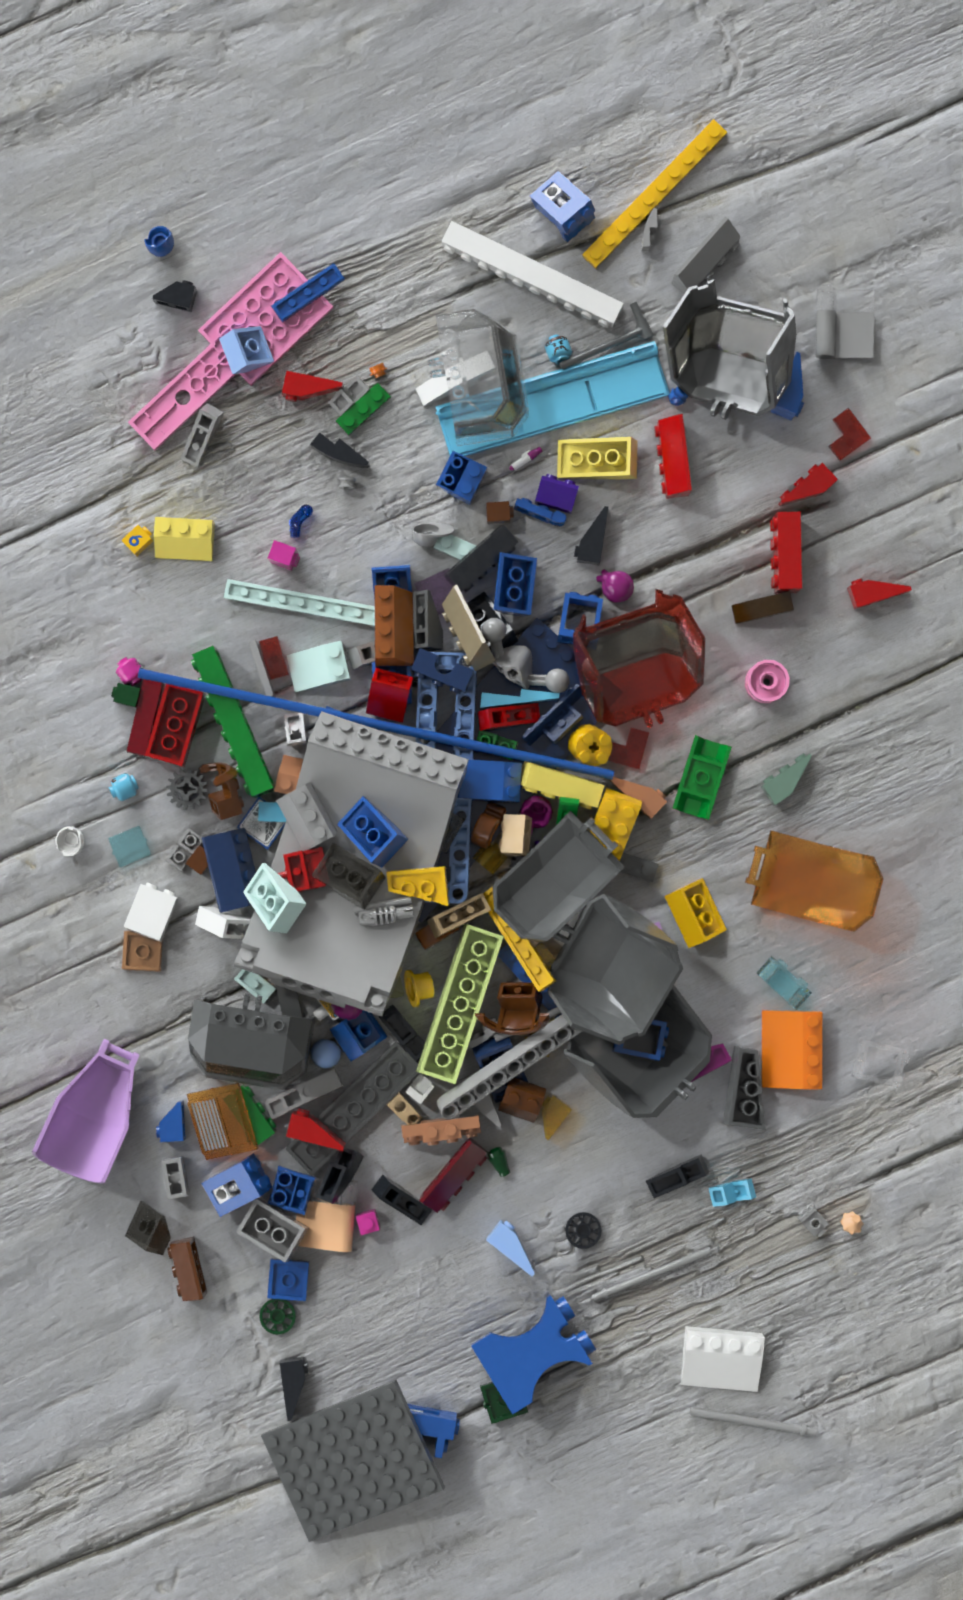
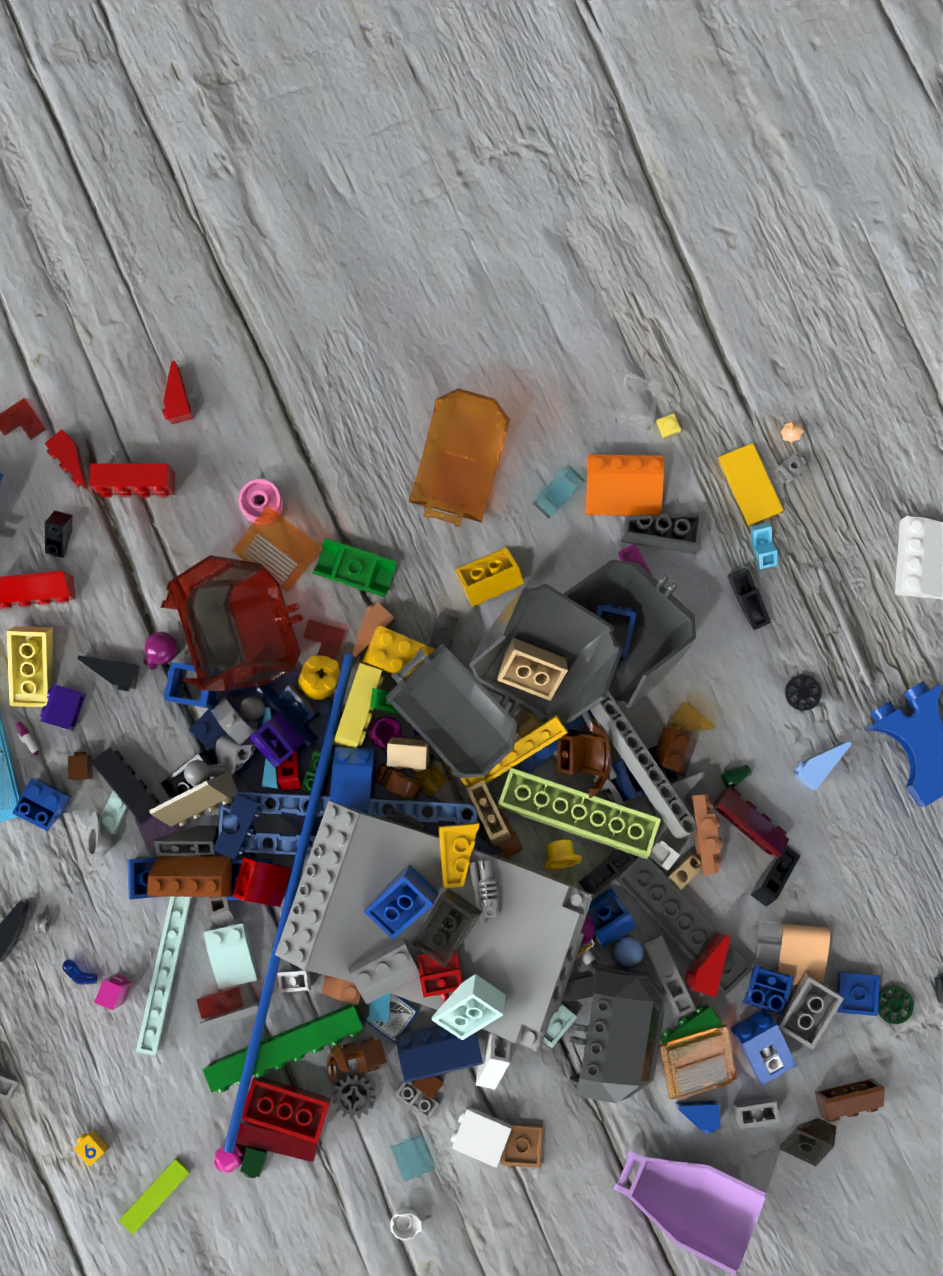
camera: 90 degrees left, 5 degrees down
(93, 601) = (154, 1195): none -> lime tile
(123, 787) = (350, 1165): medium azure head -> none
(184, 539) = (91, 1097): light yellow slope -> none
(339, 1175) = (753, 940): black slope -> none
(368, 1221) = (798, 910): dark pink brick -> none
(515, 584) = (153, 750): blue slope -> none
(526, 706) = (276, 740): none -> dark purple slope
(540, 512) = (82, 724): blue hinge -> none
(545, 661) = (232, 721): none -> light grey slope
(601, 956) = (532, 669): none -> tan slope
(720, 700) = (278, 547): none -> clear orange piece
(731, 479) = (58, 533): none -> black slope
(762, 607) = (187, 505): dark brown slope -> none
(783, 784) = (363, 488): sand green slope -> none
(796, 1179) = (750, 484): none -> yellow tile
(856, 1095) = (668, 425): none -> light yellow plate

